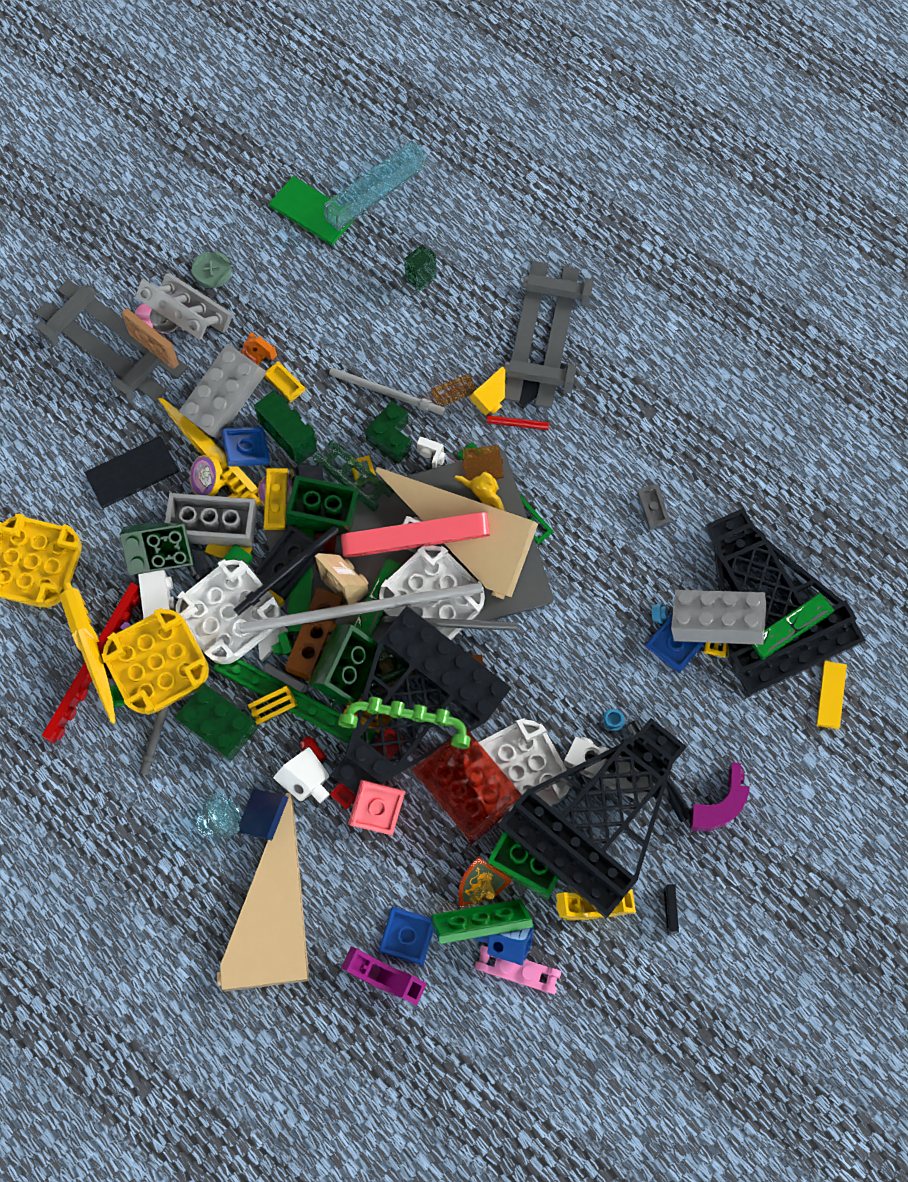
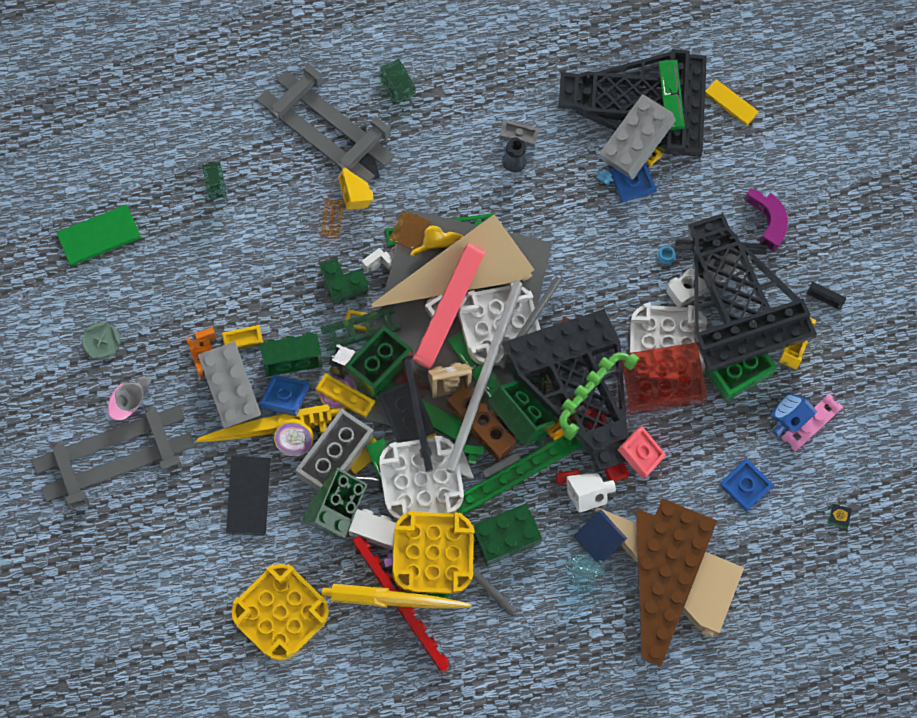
camera: 65 degrees left, 0 degrees up
(150, 338) = (148, 414): medium nougat tile -> none
(184, 305) = (130, 375): light grey fence -> none
(255, 713) = (516, 487): yellow tile -> none
(271, 895) = (668, 561): none -> reddish brown wing
(374, 185) = (115, 173): clear light blue brick -> none
(383, 976) = (772, 513): magenta arch -> none
(423, 404) = (330, 245): light grey bar -> none
(428, 1055) = (839, 516): none -> black tile
(481, 883) = (738, 411): clear yellow shield -> none
(481, 921) = (768, 424): green tile -> none
(517, 422) = (389, 187): red bar -> none
(624, 515) = (515, 155): none -> black plant
(632, 367) = (397, 81): none -> clear green brick

